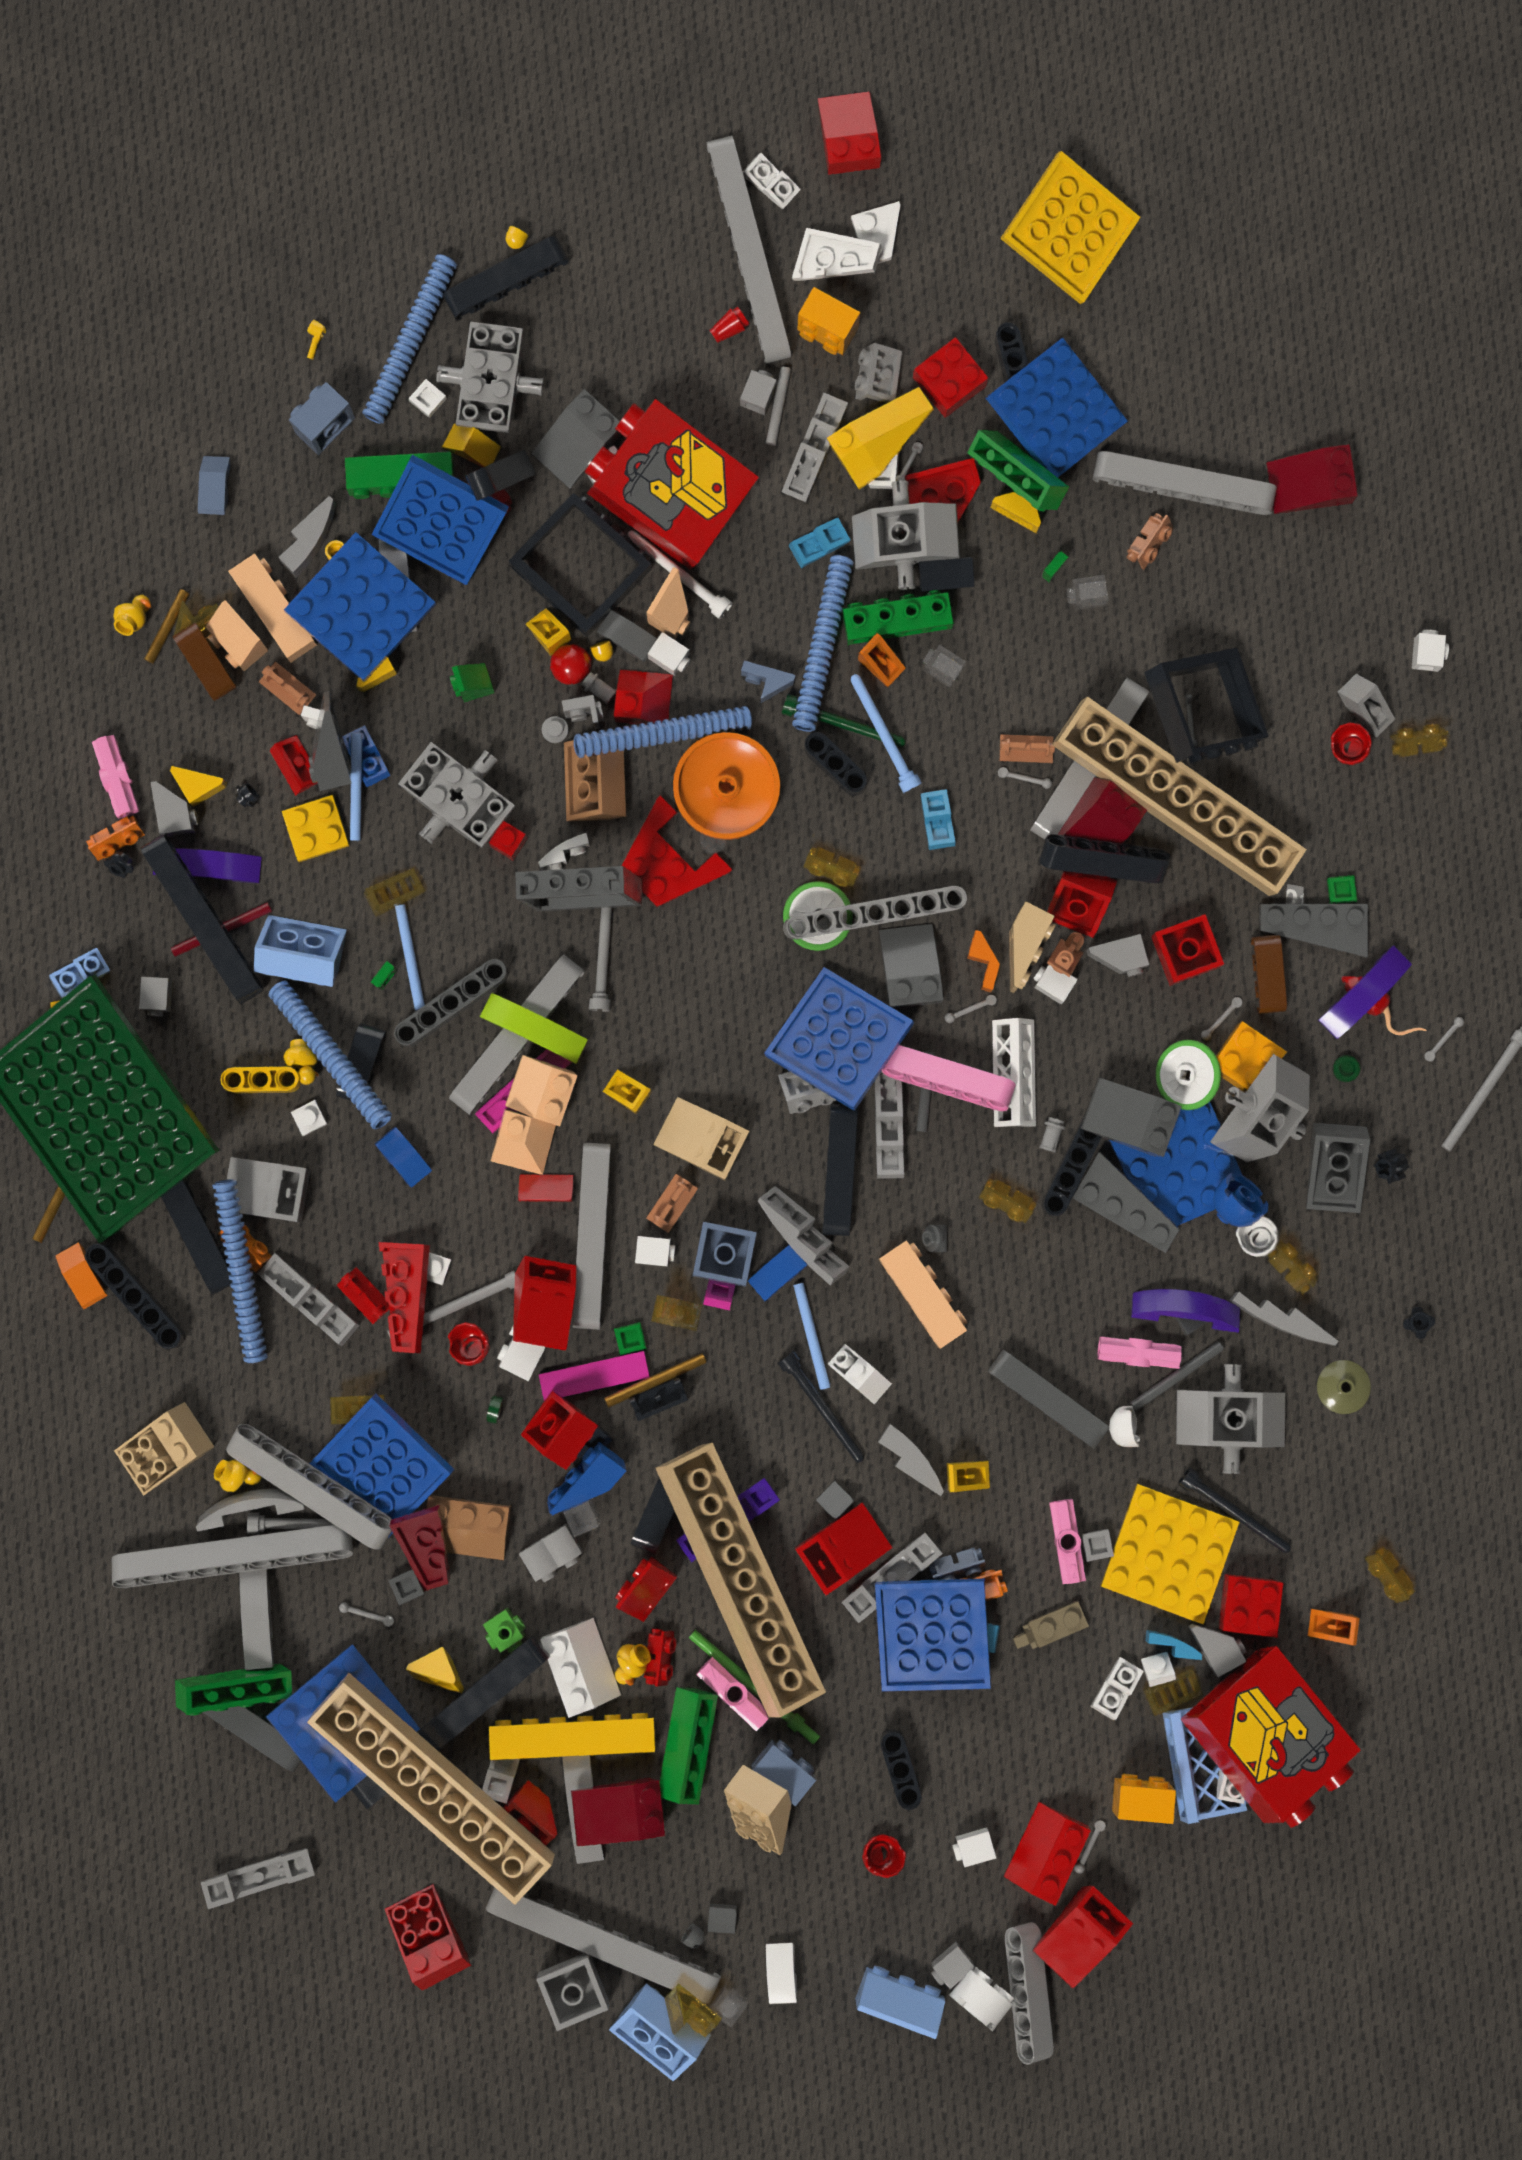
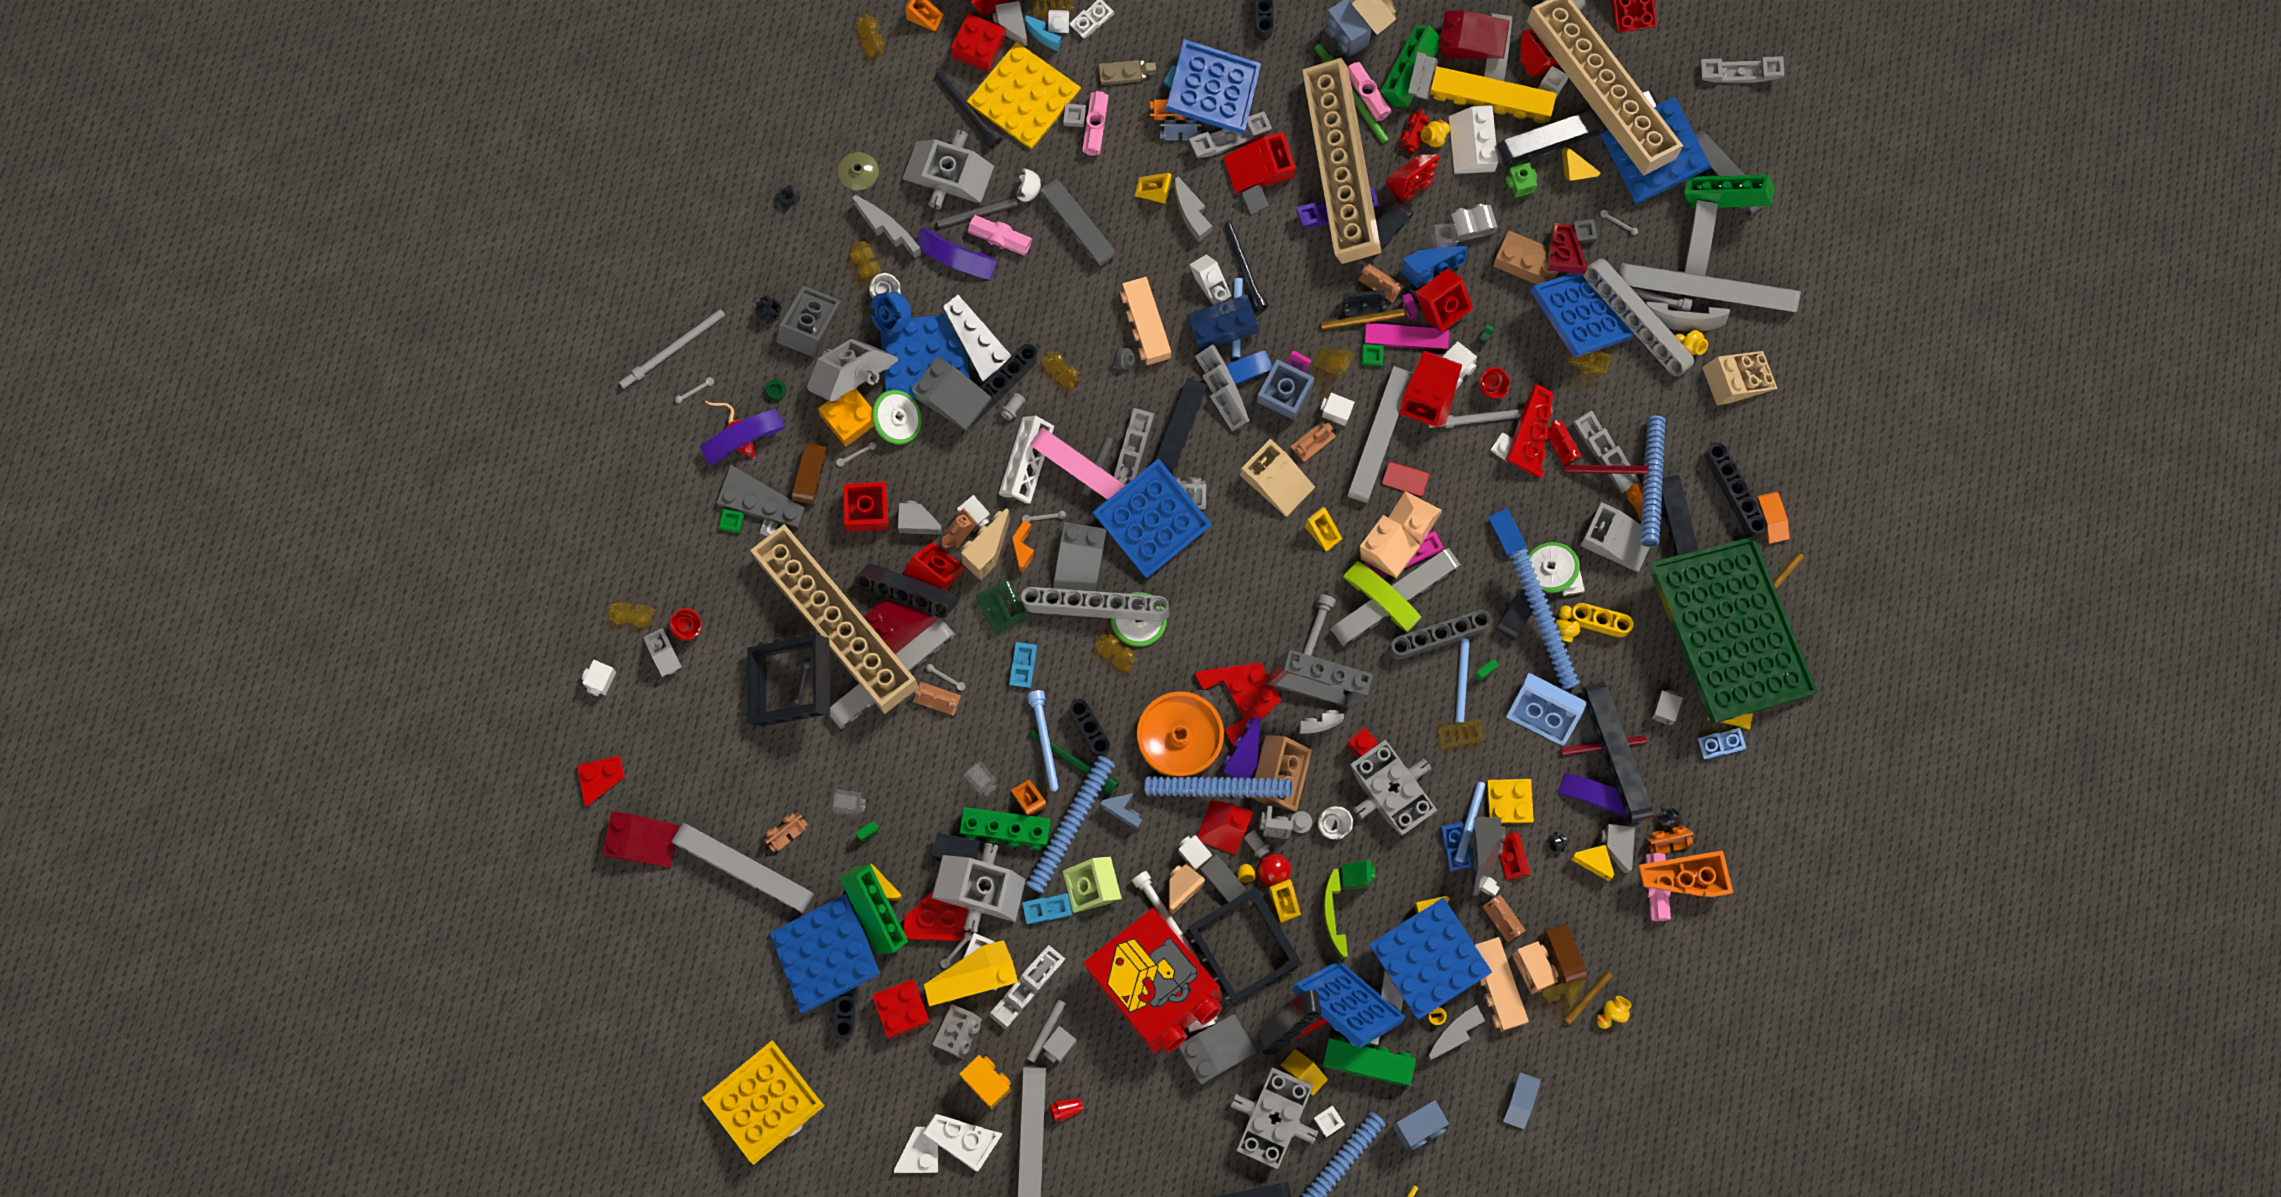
camera: 165 degrees left, 10 degrees down
(78, 795) = (1693, 875): none -> orange wedge
(303, 1270) = (1606, 469): none -> dark red bar
(320, 1135) = (1565, 564): none -> white wheel
(474, 603) = (1337, 941): none -> lime slope
(525, 737) = (1327, 819): none -> white hair
(601, 1414) = (1409, 306): none -> magenta tile
(641, 780) = (1245, 758): none -> dark purple slope
(645, 1437) = (1379, 281): none -> nougat hinge
(668, 1730) = (1423, 76): none -> light grey slope
(776, 583) = (1092, 884): none -> yellowish green slope
(827, 1321) = (1224, 322): none -> dark blue slope
(991, 875) = (996, 610): none -> clear green plate
(1385, 539) = (599, 777): none -> red wing

